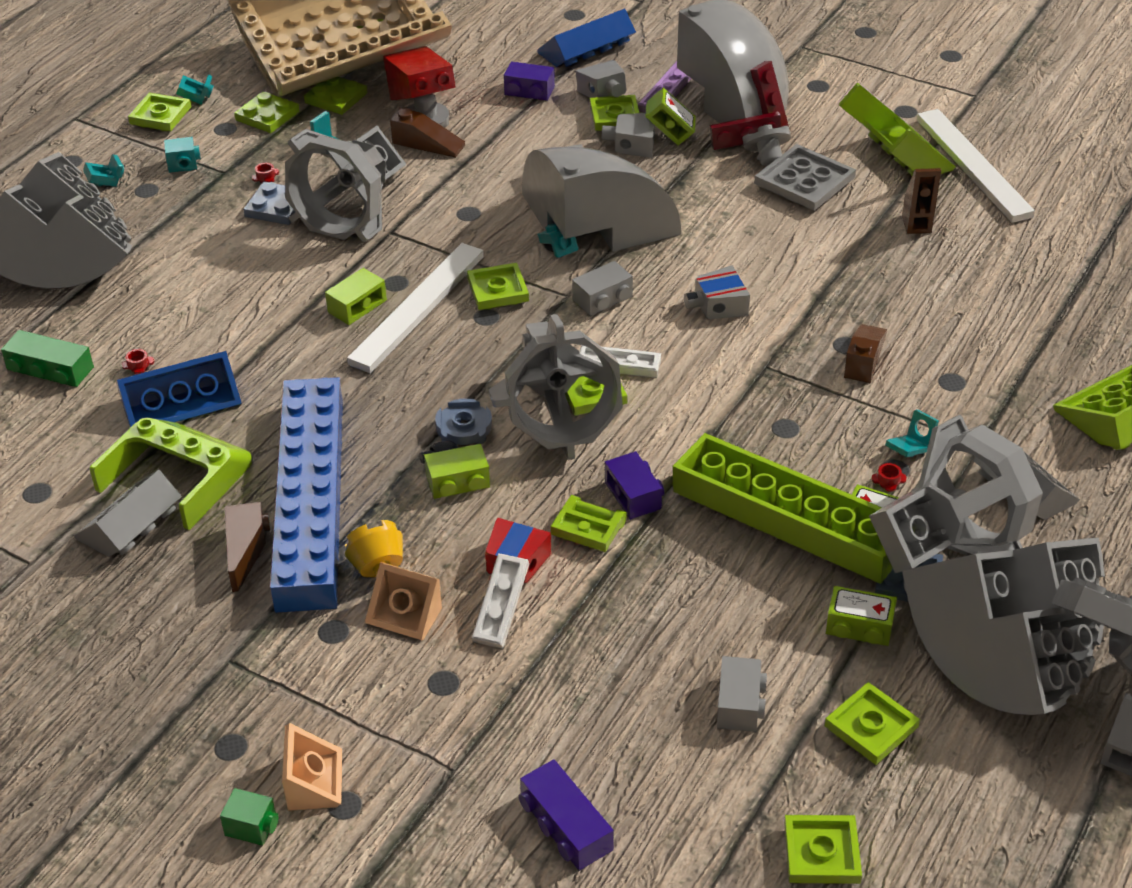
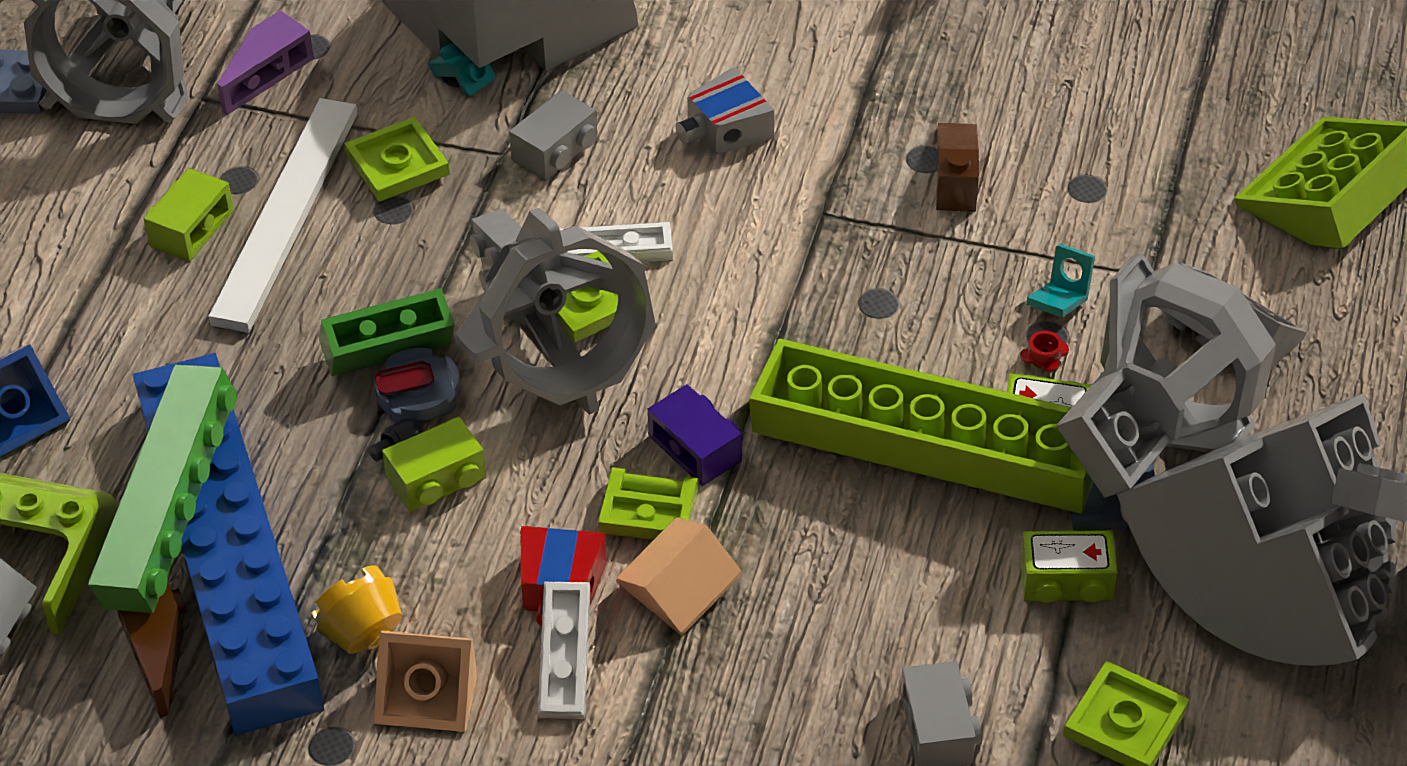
camera: 15 degrees left, 5 degrees up
(273, 449) = (163, 489): none -> bright green brick
(433, 215) = (264, 58): none -> medium lavender slope
(444, 384) = (378, 331): none -> bright green brick
(455, 415) = (404, 378): none -> dark red piece
(594, 569) = (680, 574): none -> light nougat slope

